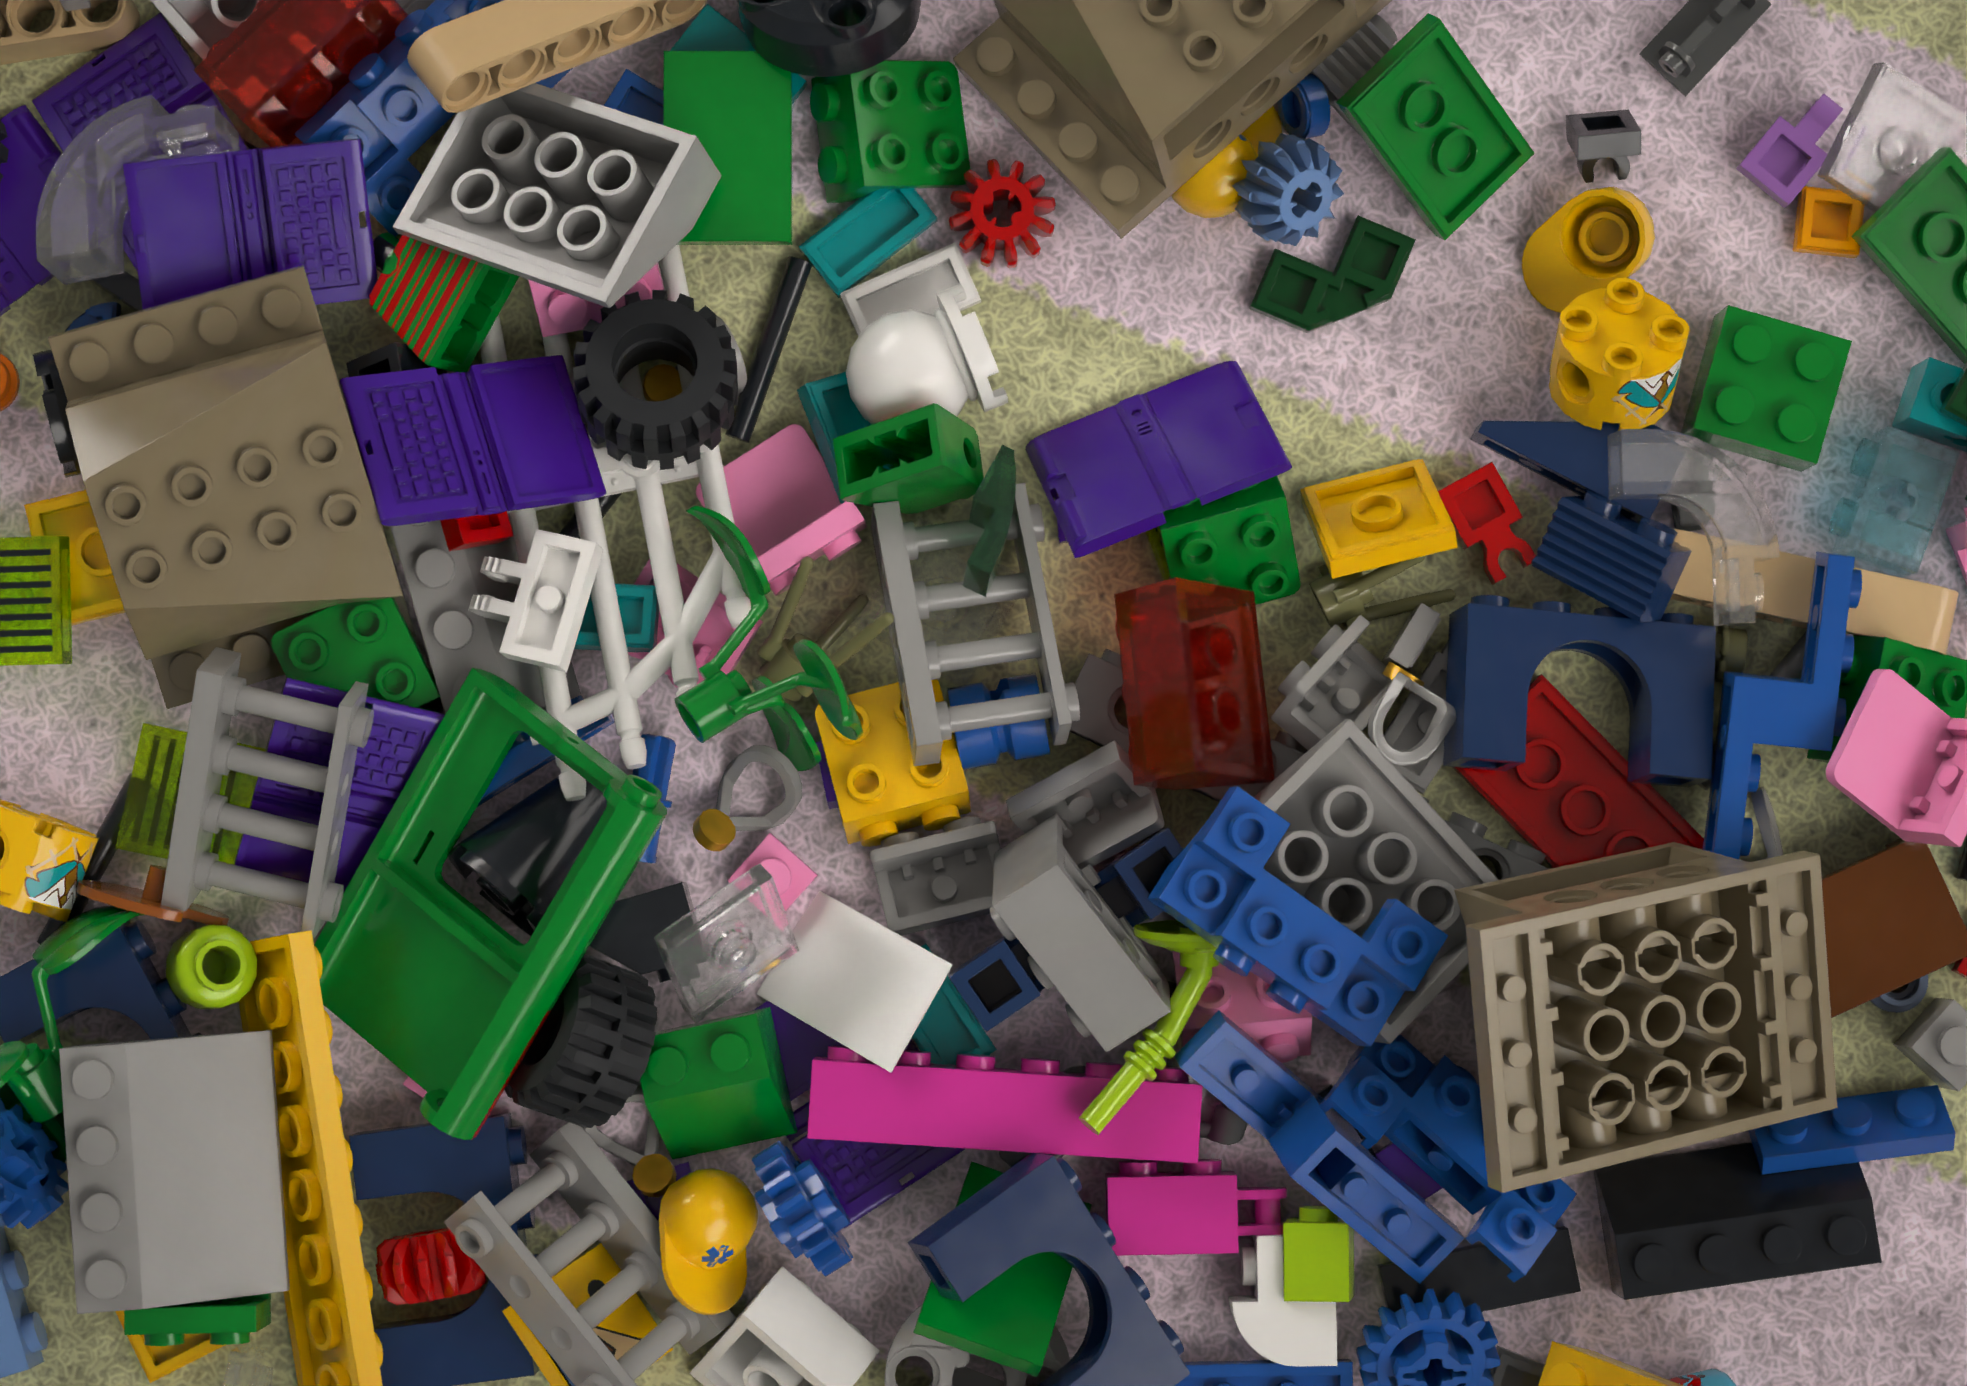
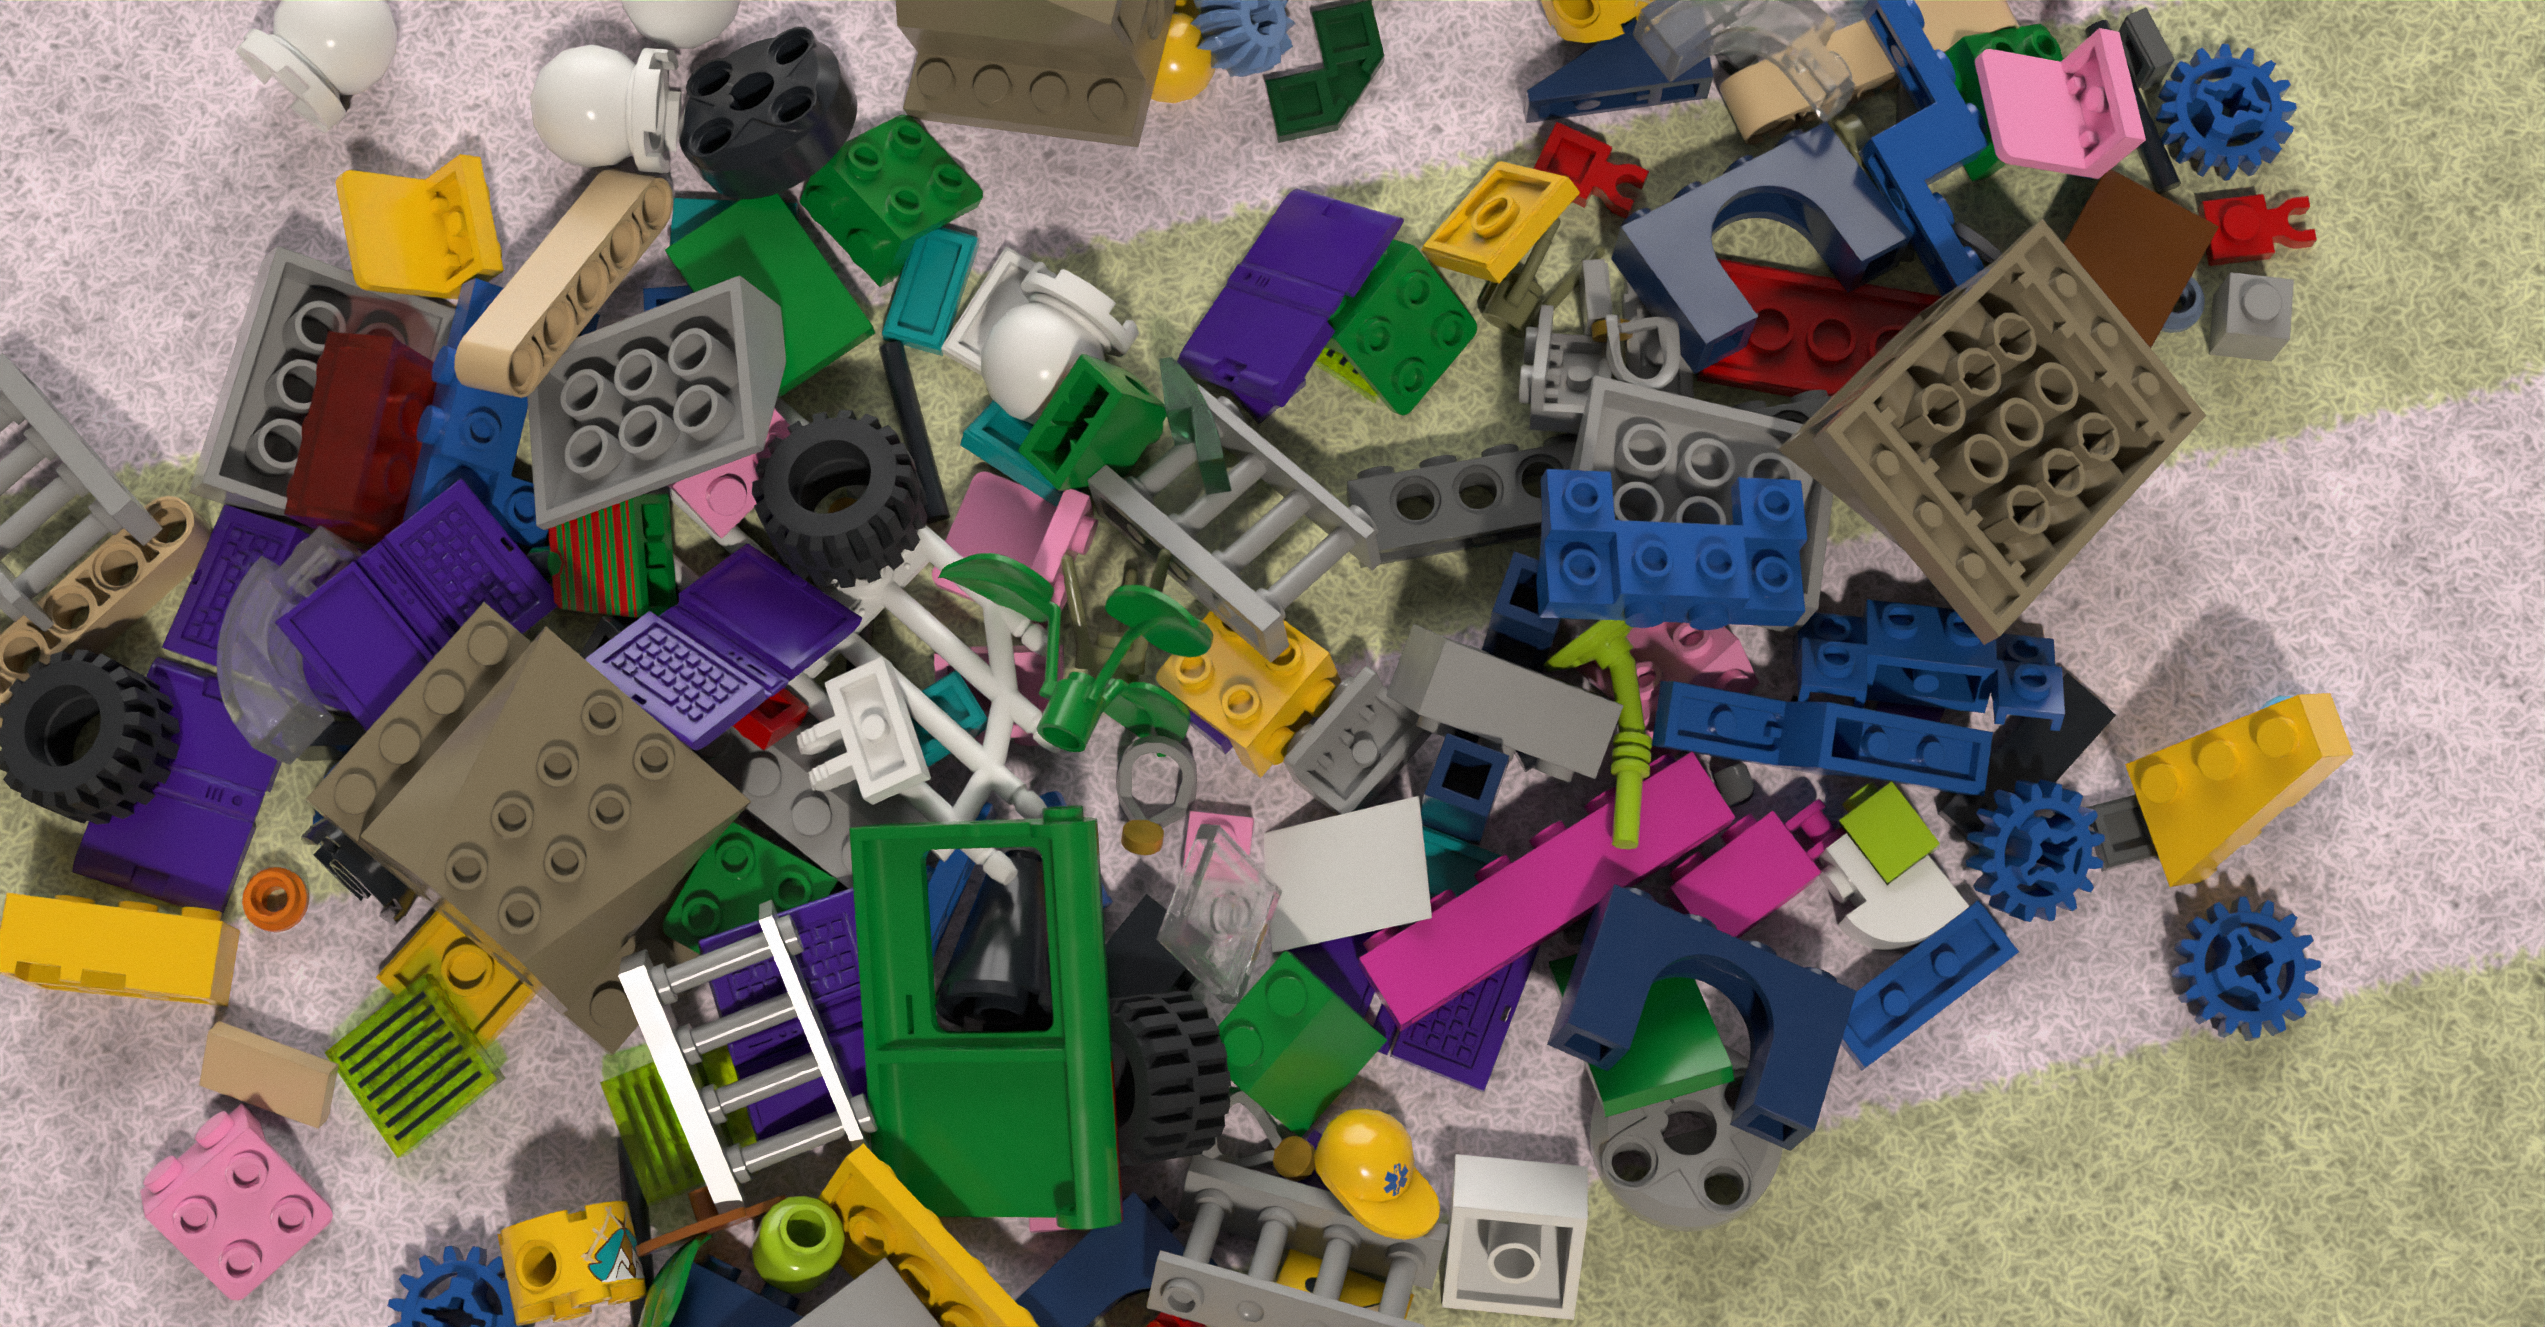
camera: 30 degrees left, 10 degrees down
(802, 1208) = (1438, 1089): blue gear -> none
(985, 745) = (1336, 589): blue wheel -> none
(1022, 222) = (1026, 219): red gear -> none
(1094, 803) = (1439, 590): light grey bracket -> none
(1193, 685) = (1446, 442): clear red slope -> none
(1612, 556) = (1706, 123): dark blue brick -> none
(1720, 1222) = (2189, 566): black slope -> none
(1858, 1131) = (2230, 437): blue plate -> none

